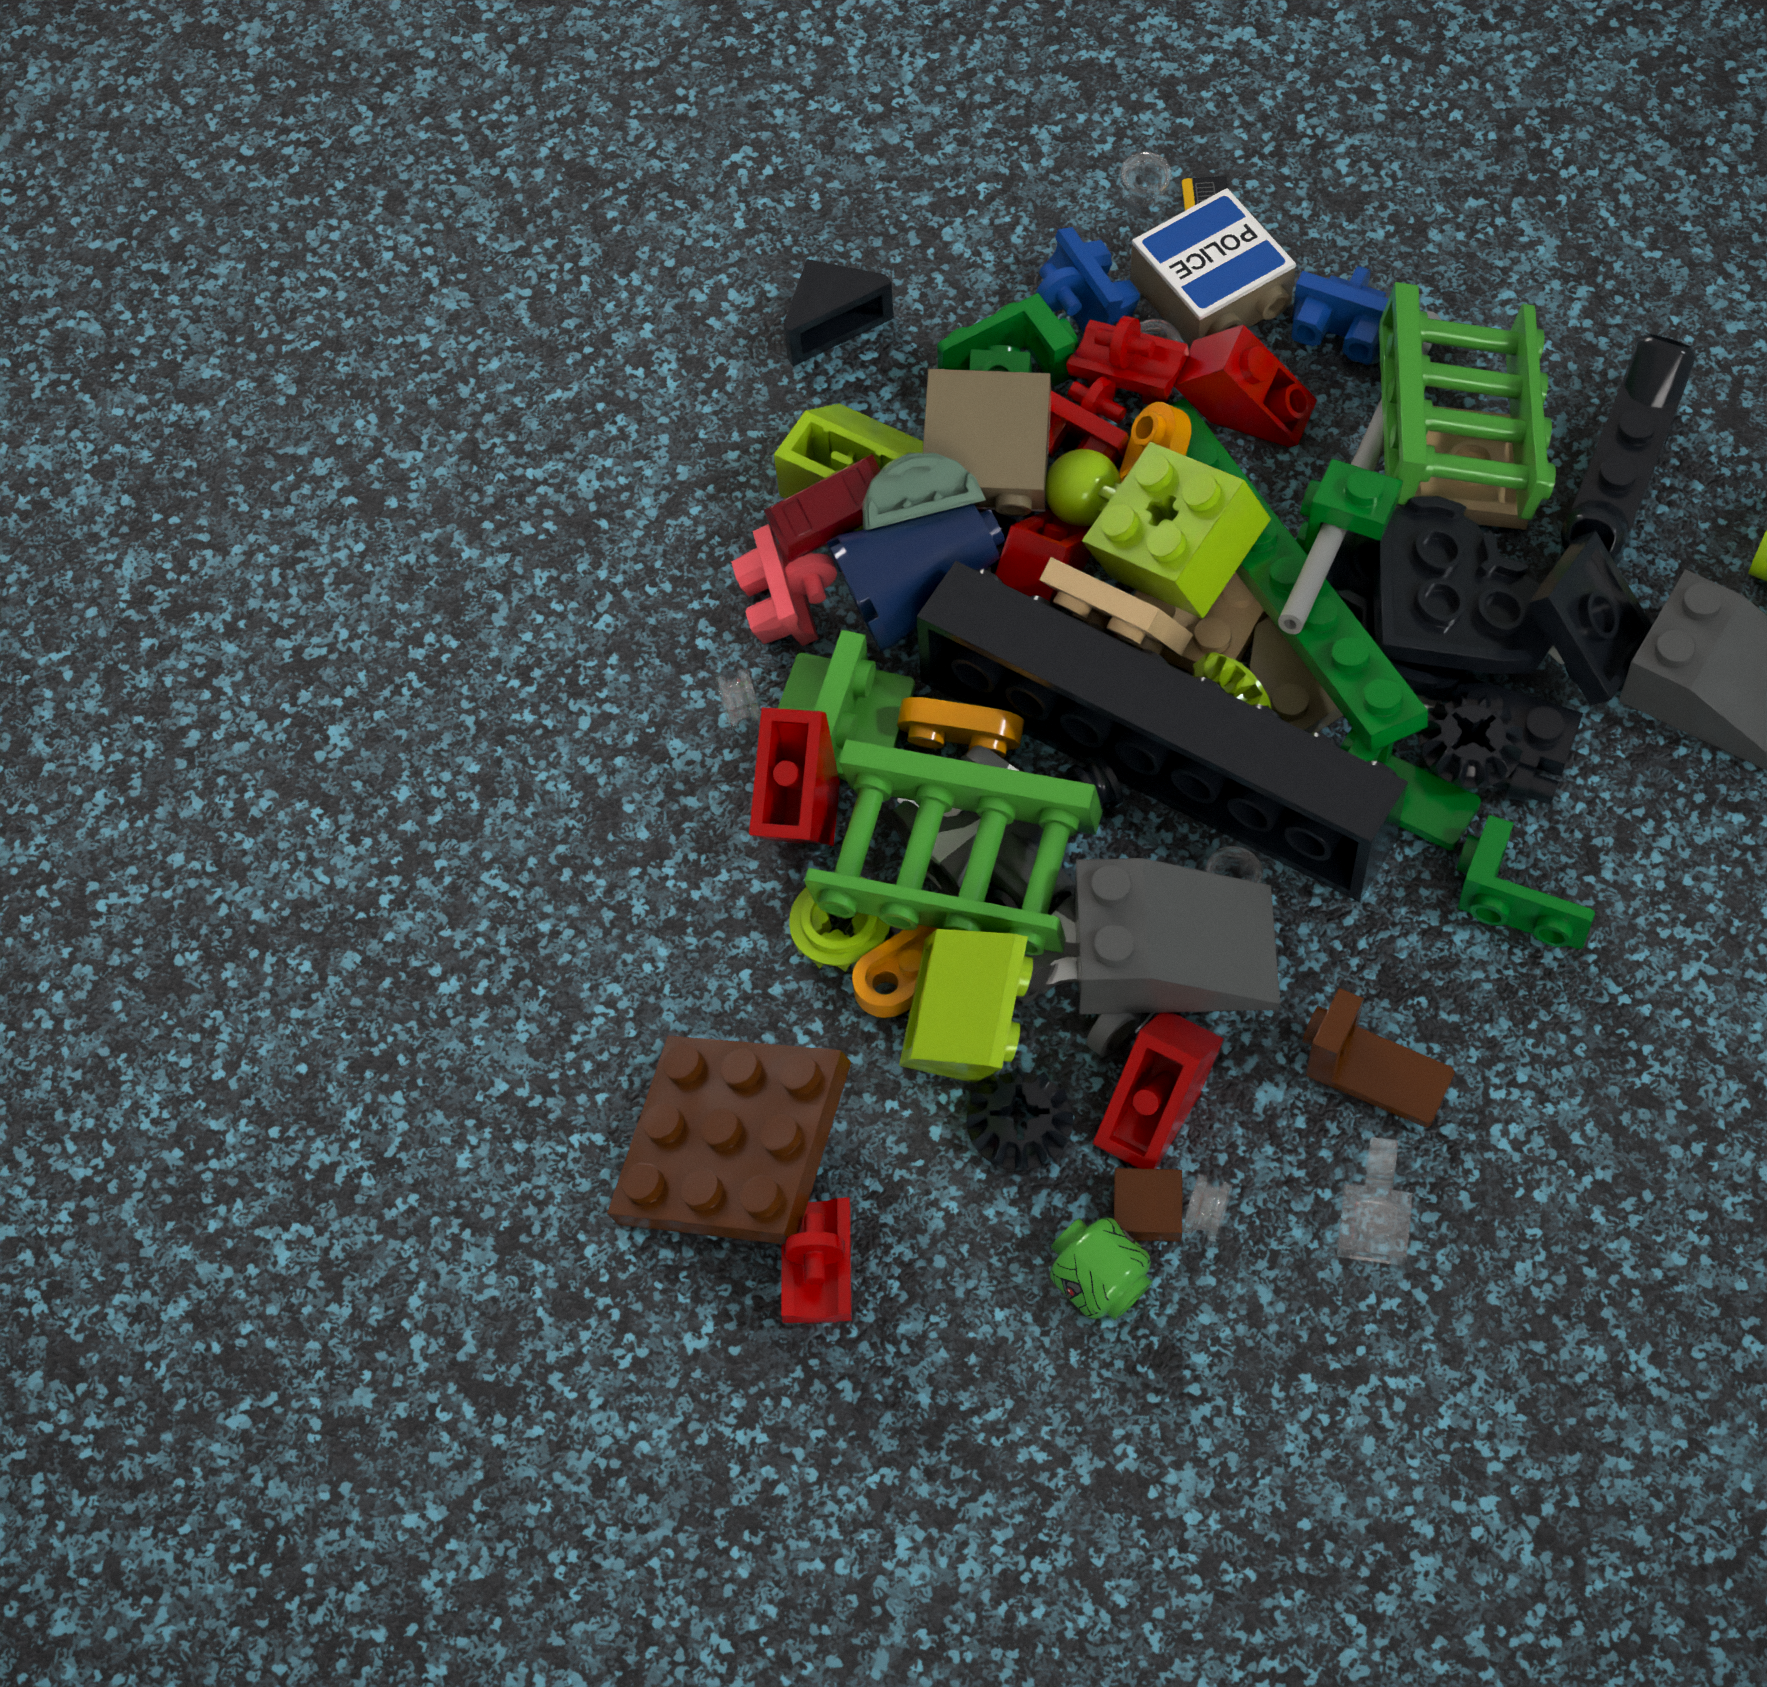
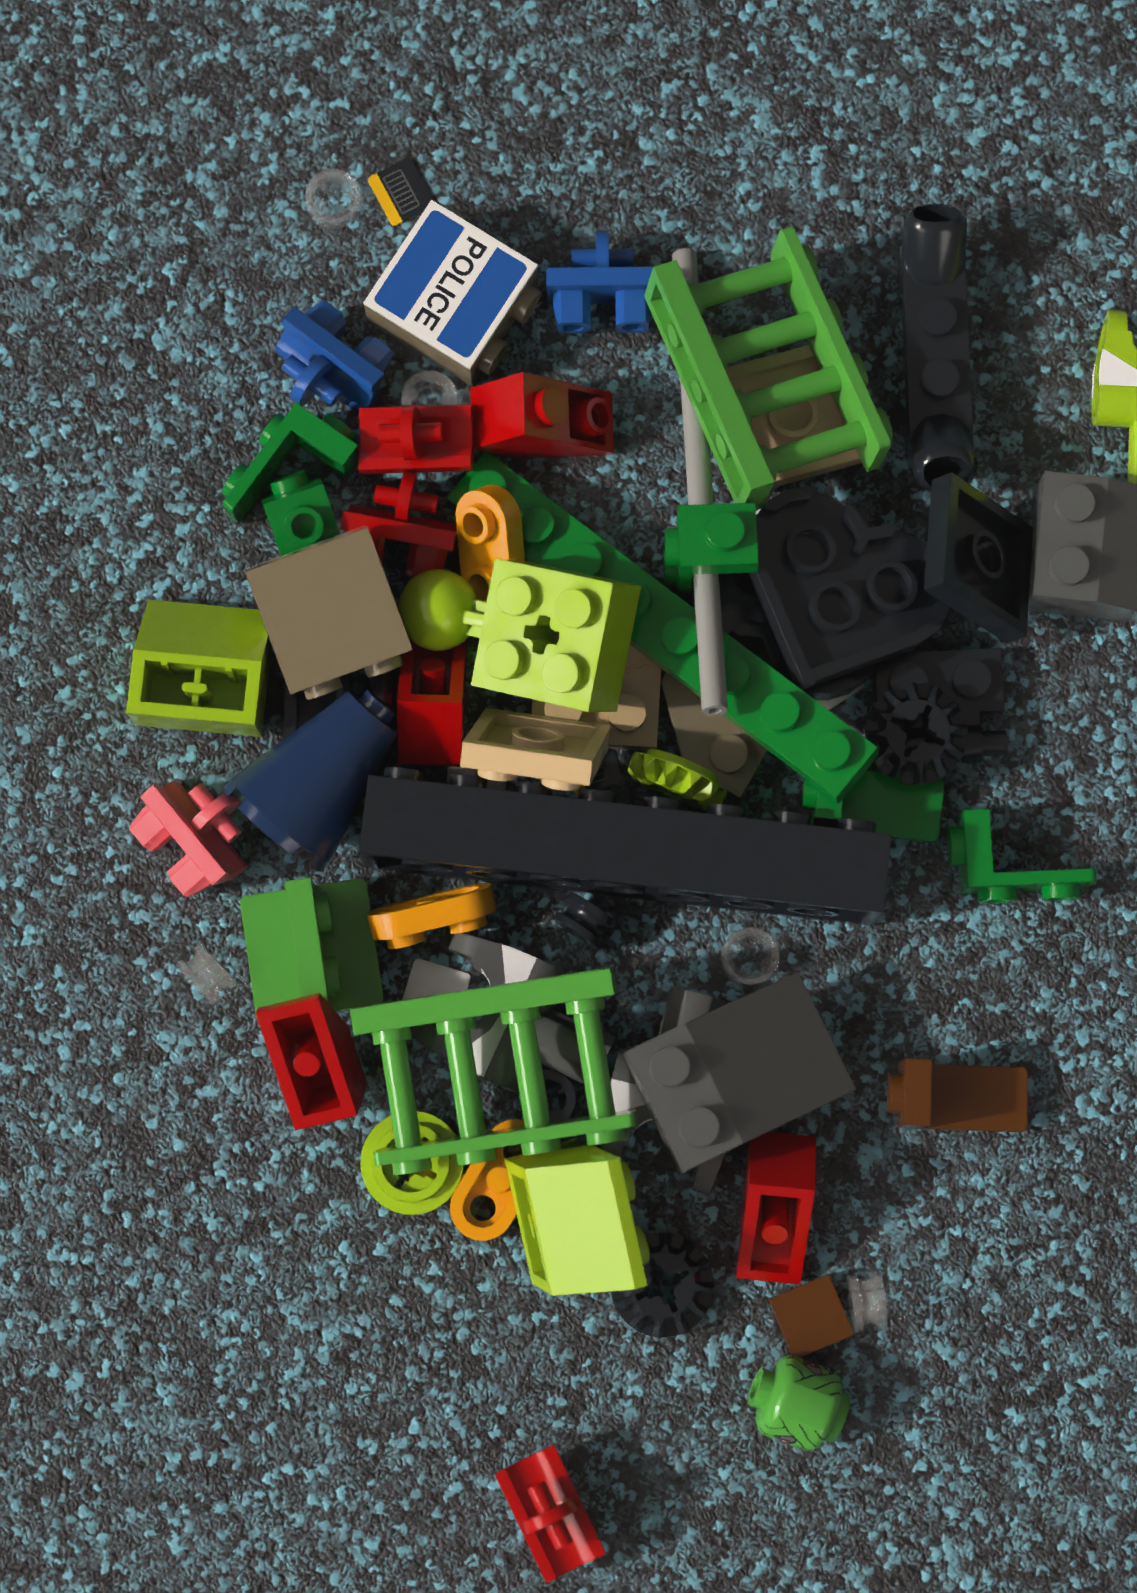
camera: 30 degrees left, 20 degrees up
(730, 1139) = (418, 1433): reddish brown plate -> none
(822, 509) = (210, 750): dark red tile -> none
(833, 307) = (88, 491): black slope -> none
(917, 487) = (293, 707): sand green tile -> none
(1374, 1216) = (1012, 1240): clear plate -> none

